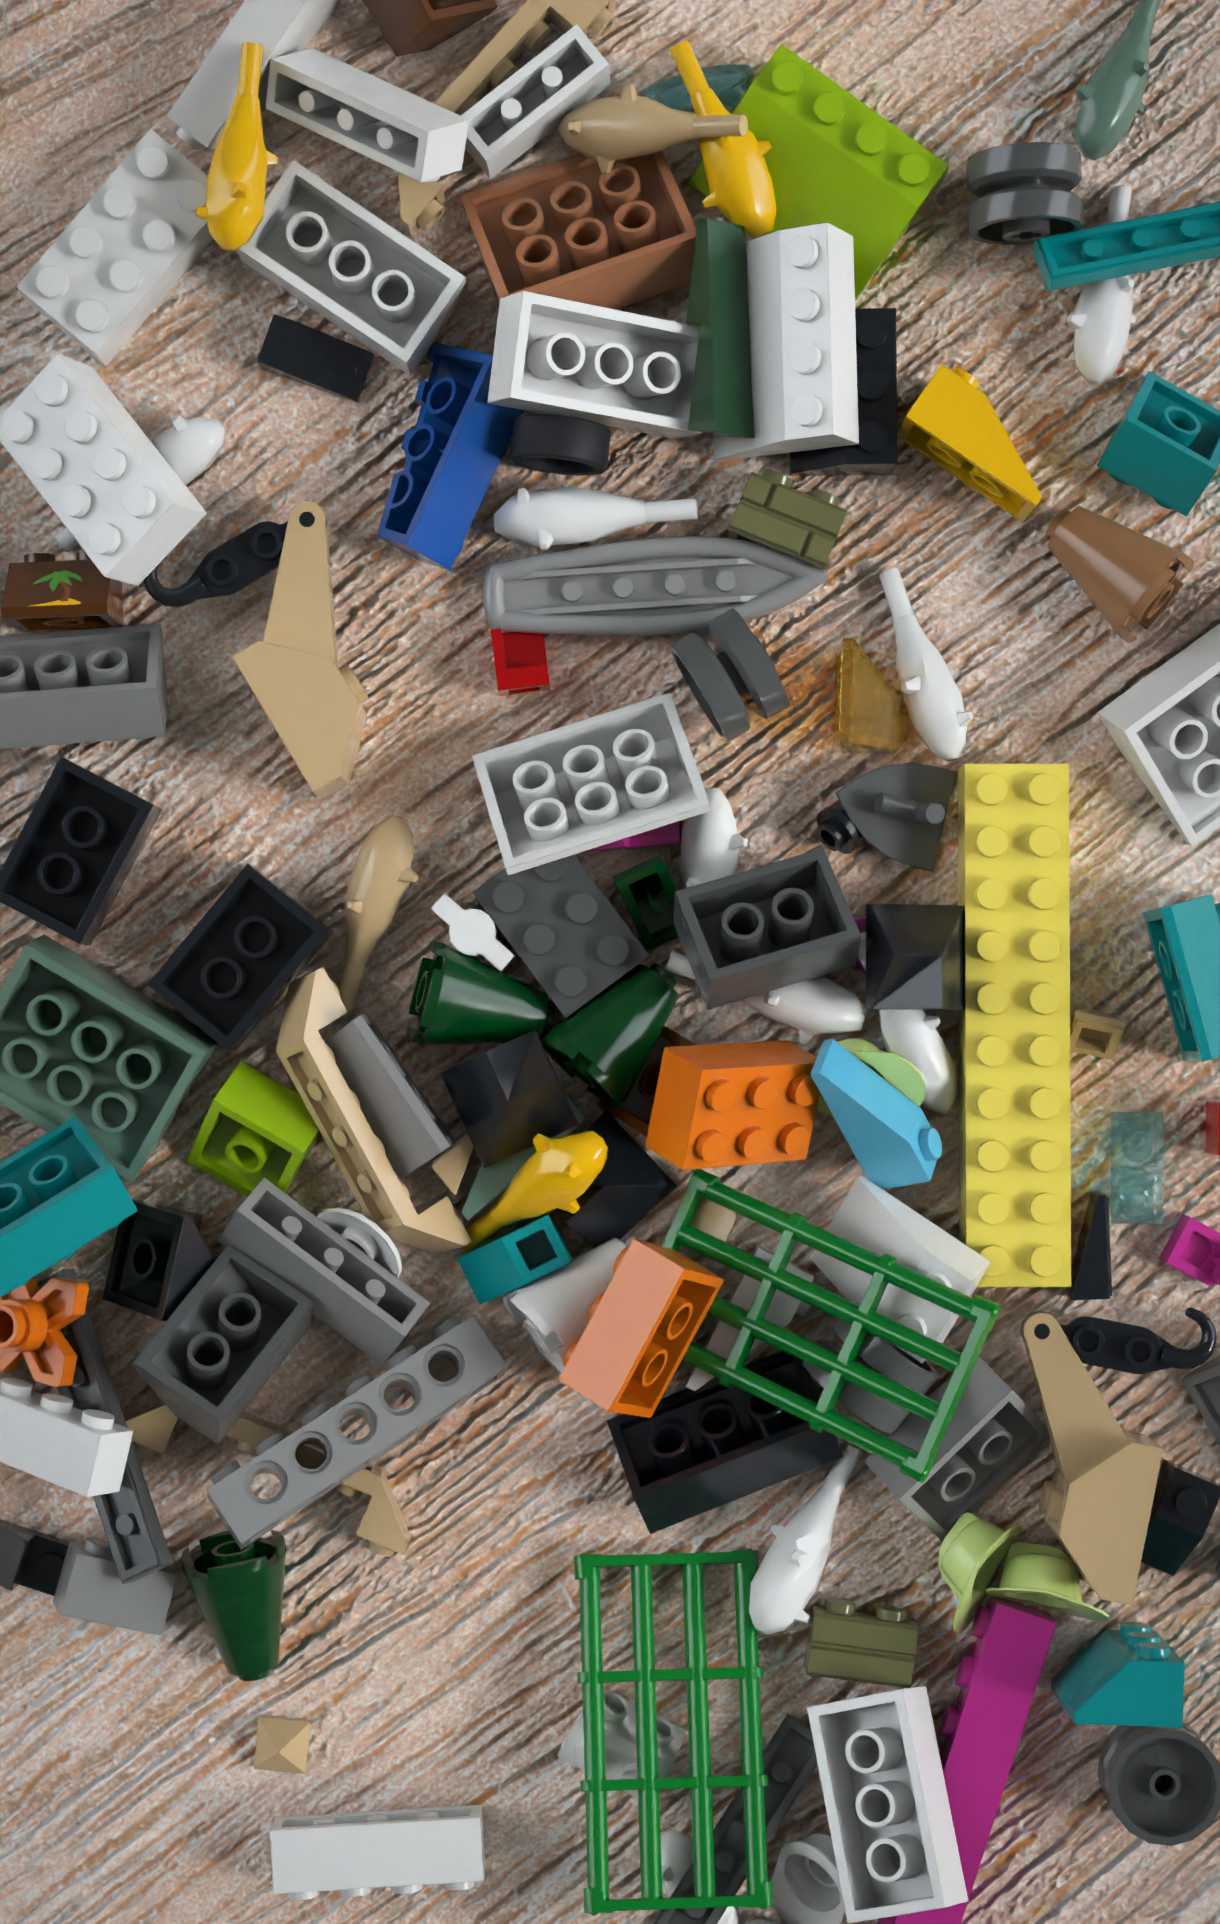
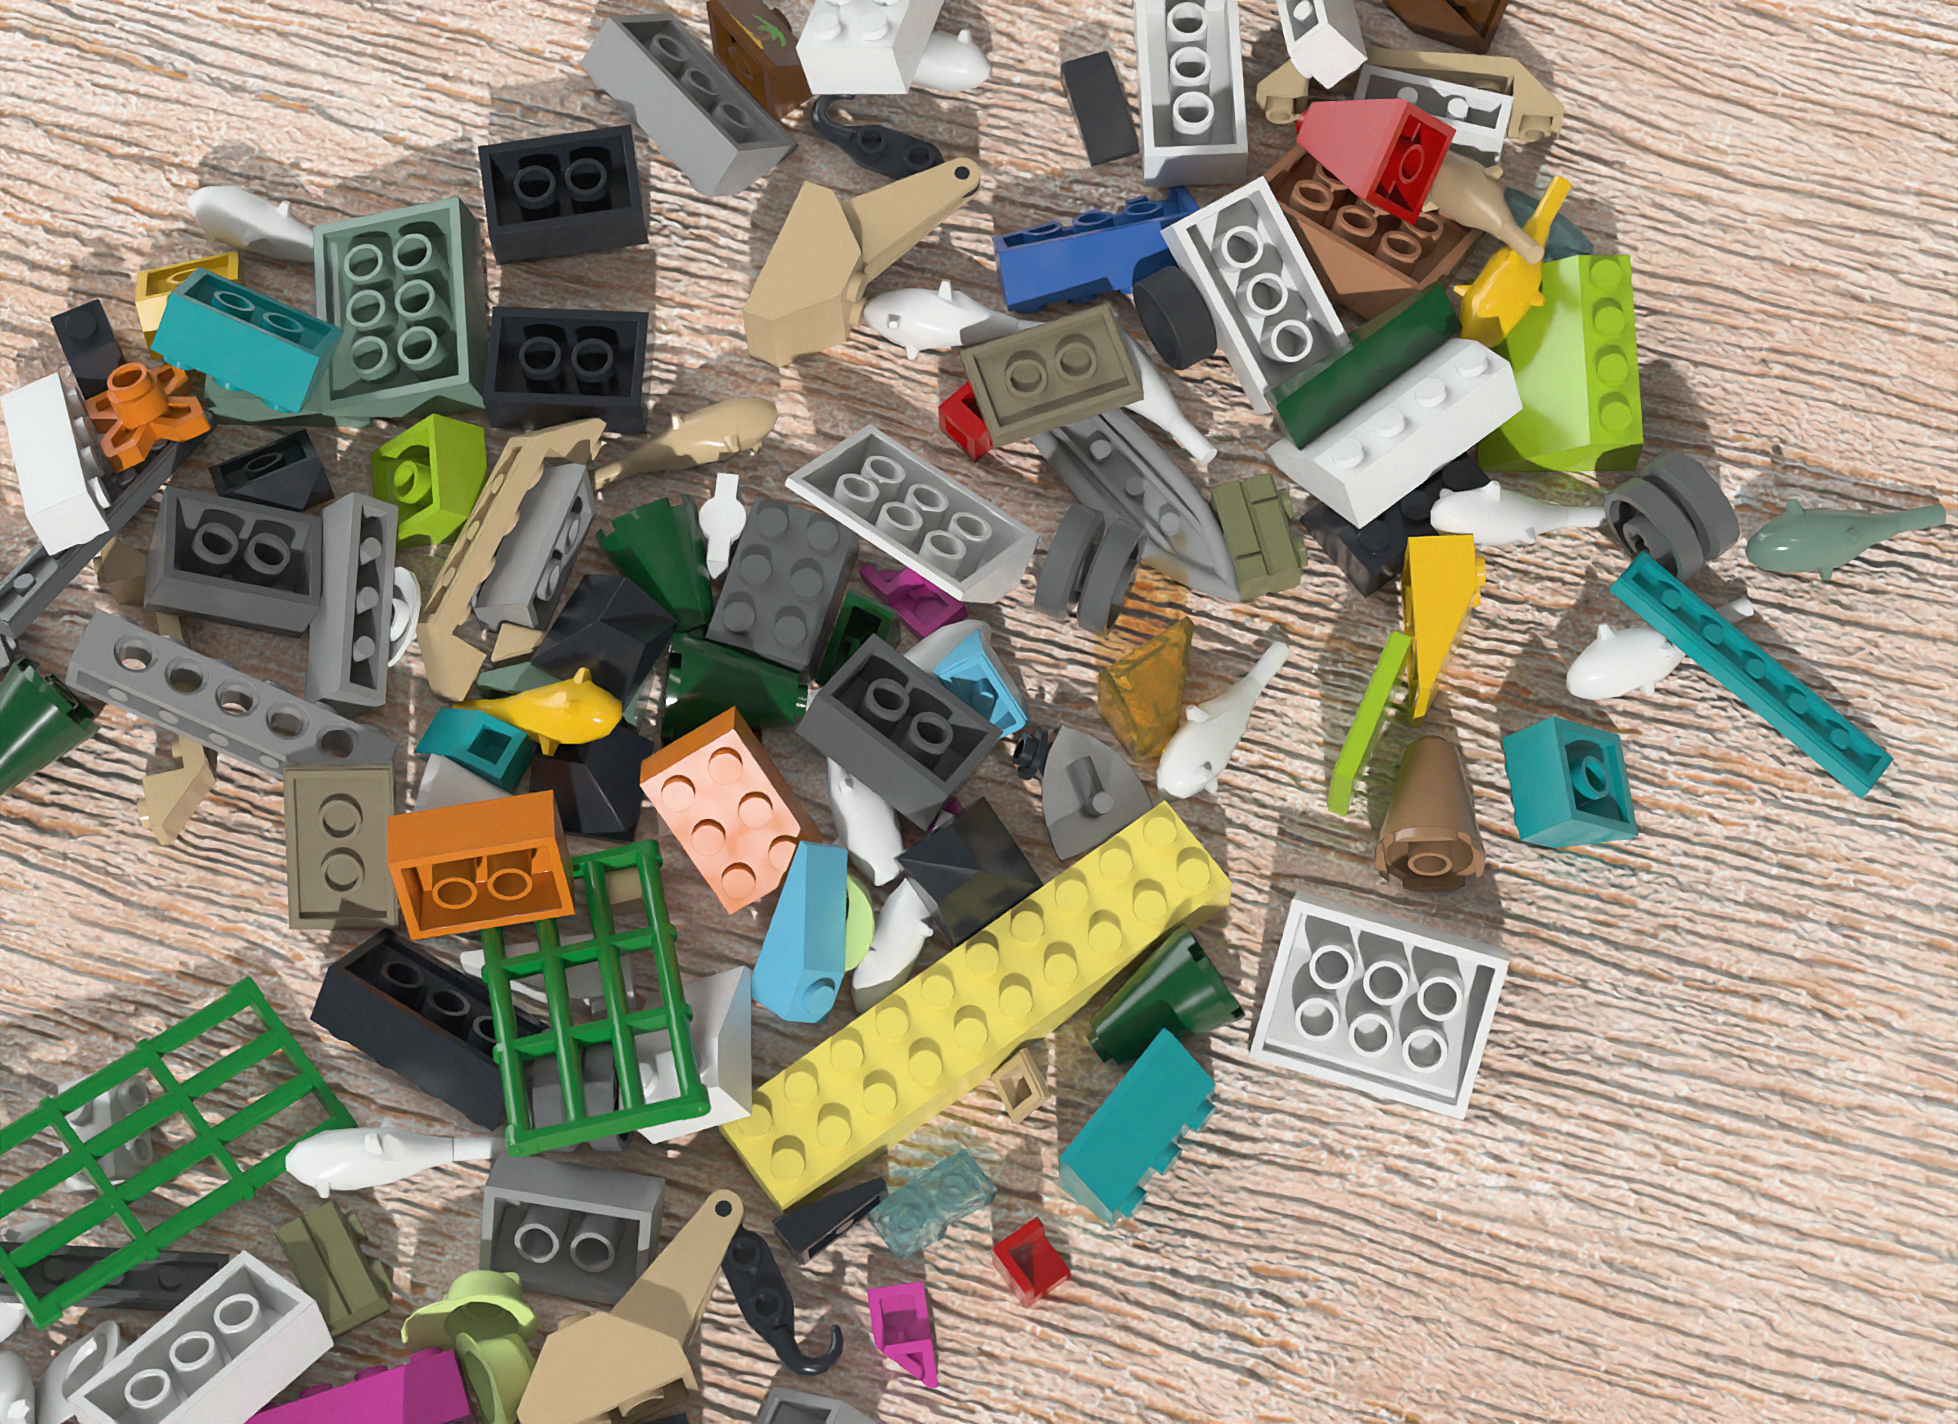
camera: 55 degrees right, 20 degrees down
(421, 621) = (936, 319): none -> white piece
(526, 1417) = (339, 846): none -> dark tan tile
(542, 582) = (1051, 375): none -> dark tan tile
(544, 178) = (1378, 149): none -> slope
(764, 831) = (984, 684): none -> medium azure slope
(930, 322) = (1506, 516): none -> white piece
(1015, 559) = (1368, 723): none -> lime tile
(1116, 881) = (1169, 990): none -> dark green cone

